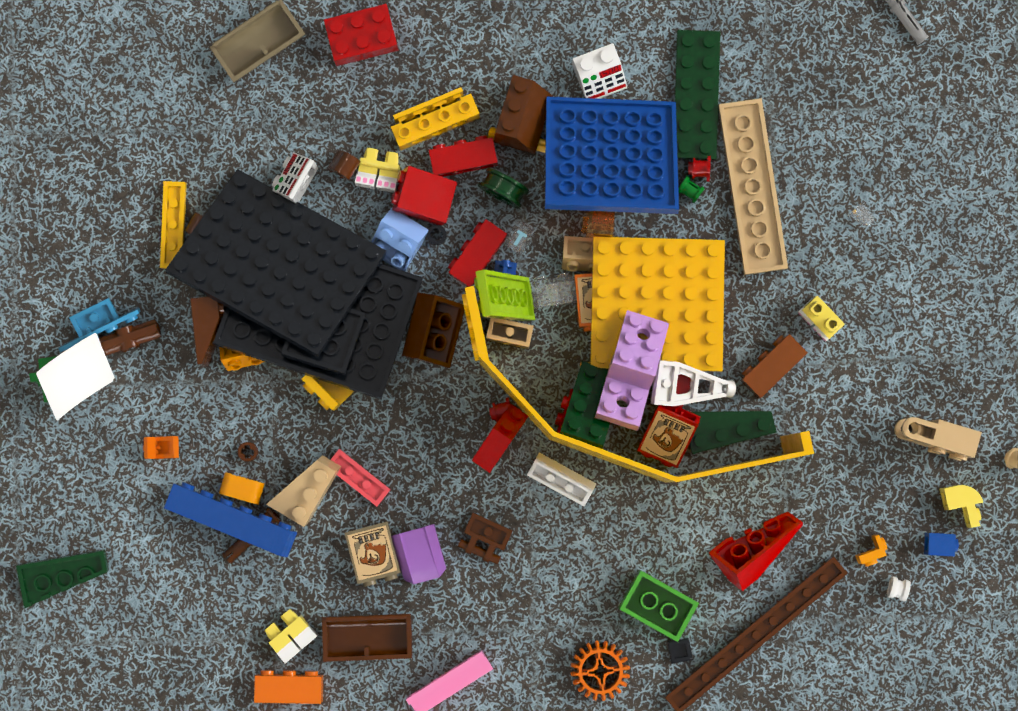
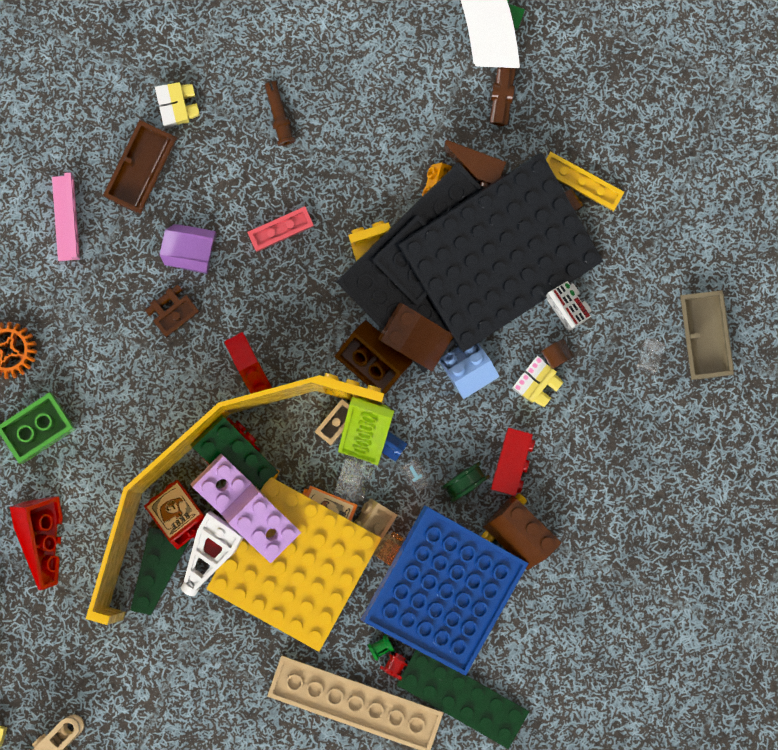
camera: 120 degrees right, 0 degrees up
(97, 319) = (532, 74): dark azure bracket -> none
(161, 447) = (393, 75): orange bracket -> none
(231, 520) = (299, 102): blue brick -> none
(241, 488) = (323, 125): light orange beam -> none
(252, 447) = (350, 140): reddish brown bush -> none
(288, 687) = (133, 80): orange brick -> none
(302, 82) = (650, 356): none -> clear bracket
(306, 492) = (290, 176): tan wedge -> none
(361, 35) = (666, 428): red brick -> none
(373, 554) = (209, 208): brick -> none
(394, 301) = (415, 336): none -> reddish brown slope
(423, 195) = (495, 409): red brick -> none
(436, 122) = (555, 453): yellow brick -> none
(440, 229) = (459, 410): black bush -> none
(477, 252) = (421, 430): red brick -> none
(498, 409) = (274, 377): red brick -> none
(569, 482) = (200, 395): white slope -> none
(600, 72) = (525, 621): white slope -> none
(773, 365) = (189, 637): dark orange brick -> none
(825, 320) = (208, 702): light yellow hips -> none

